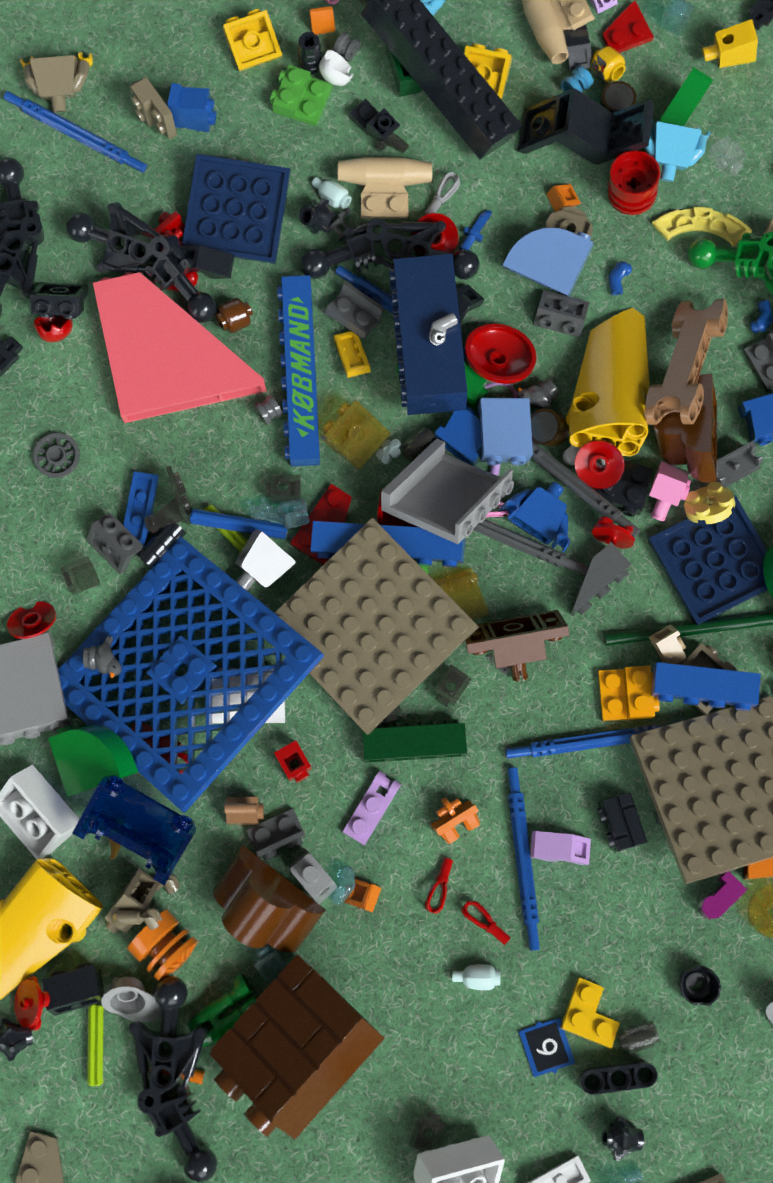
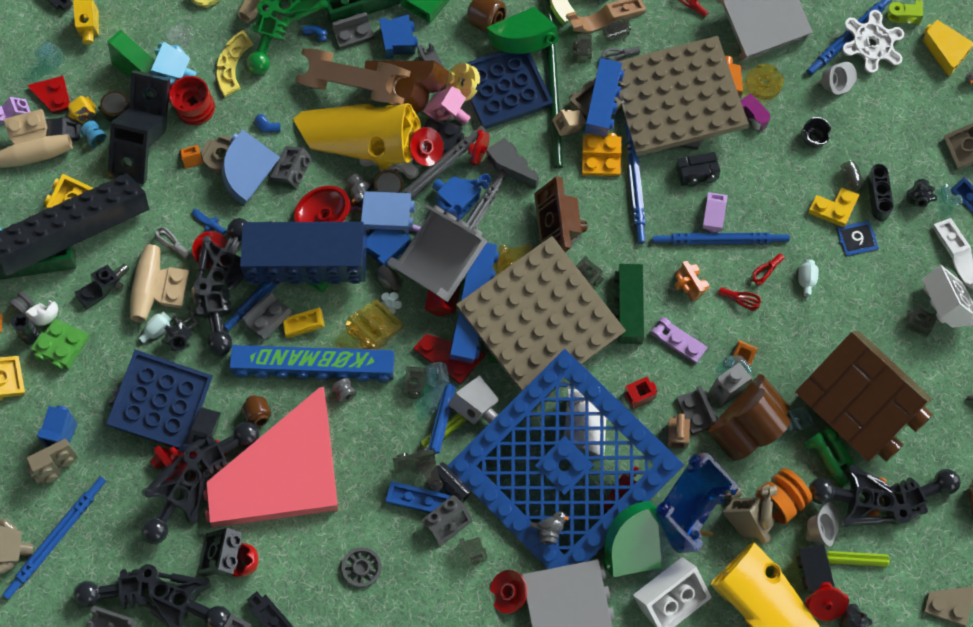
camera: 85 degrees left, 10 degrees down
(439, 328) = (307, 235): light grey arm -> none

